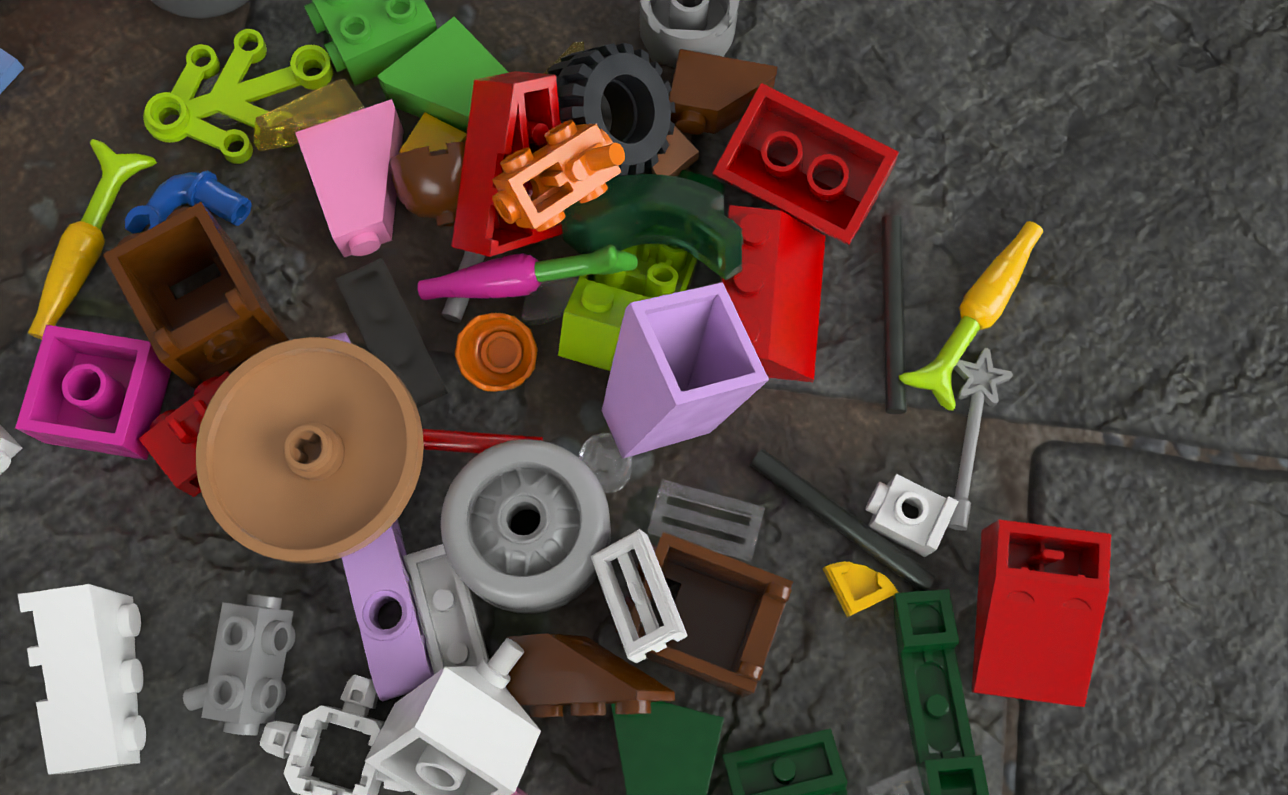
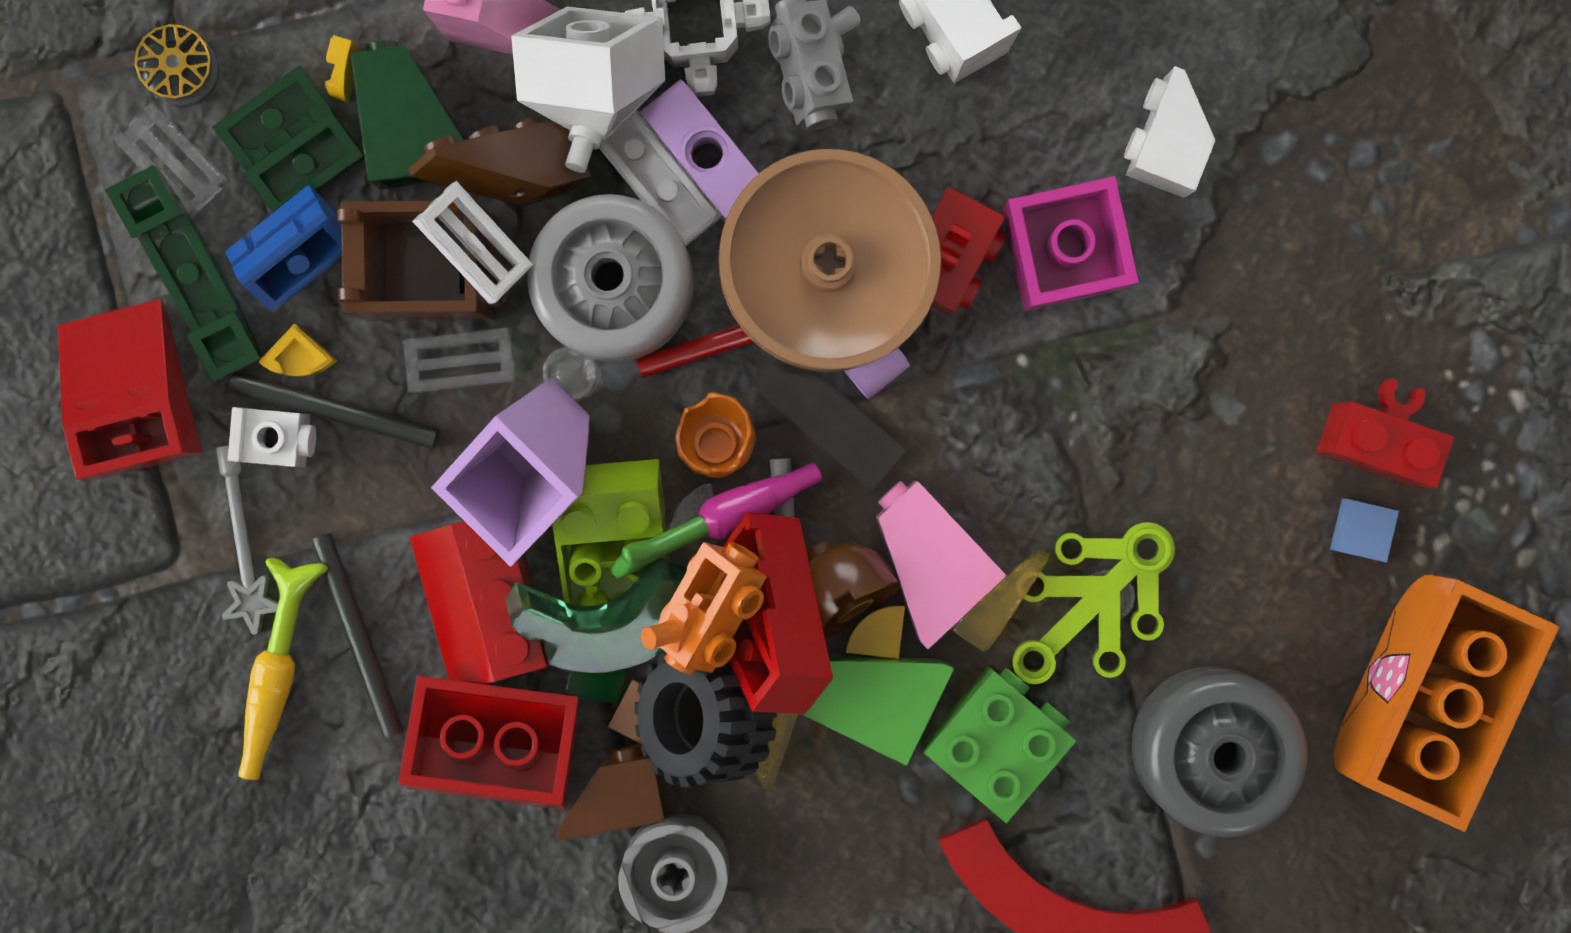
camera: 160 degrees right, 15 degrees up
(83, 240) = (1168, 390): yellow piece -> none
(189, 189) = (1085, 485): blue piece -> none
(210, 326) = (1007, 358): reddish brown container -> none
(827, 685) = (288, 249): none -> blue brick

